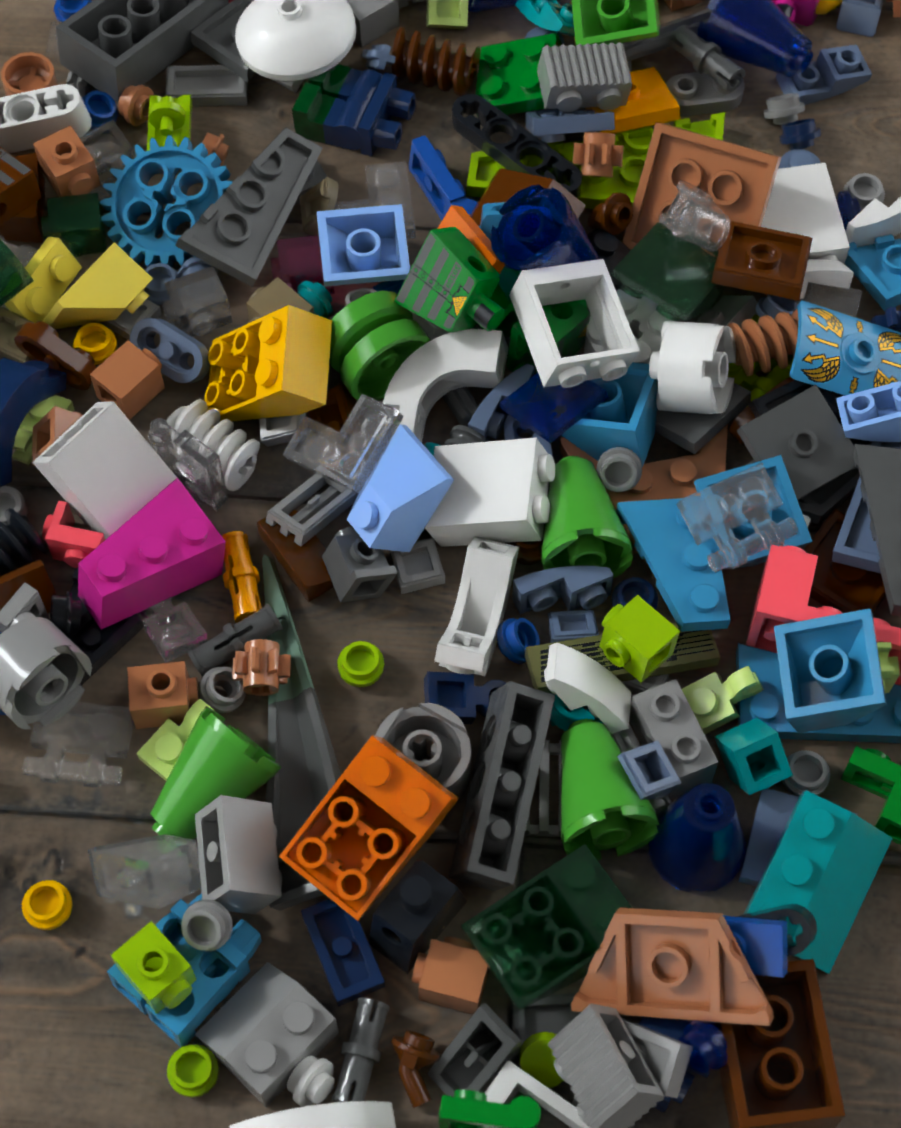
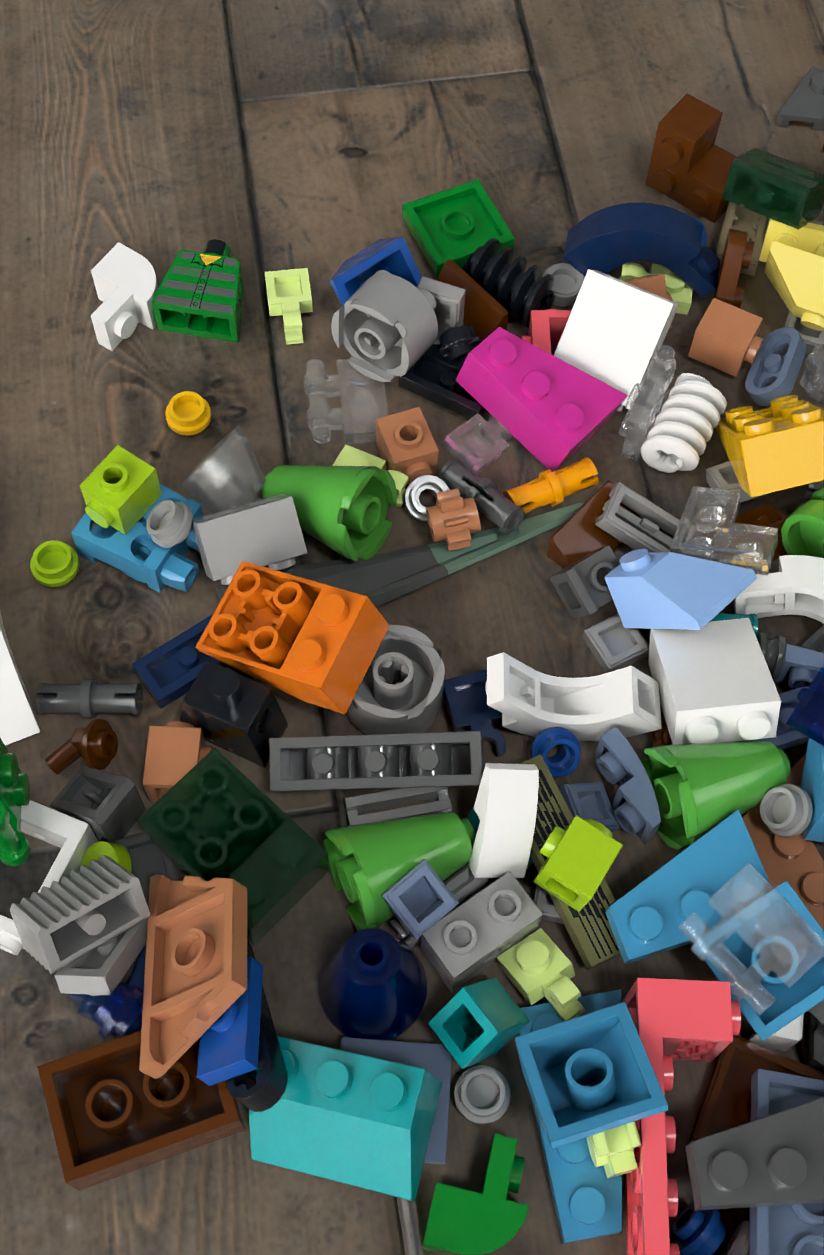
camera: 75 degrees right, 0 degrees up
(96, 340) = (764, 303): yellow plate -> none
(268, 1031) = (93, 615): light grey slope -> none
(311, 1081) = (55, 660): white plate -> none
(360, 664) = (489, 613): lime plate -> none
(629, 588) = (638, 862): dark blue plate -> none

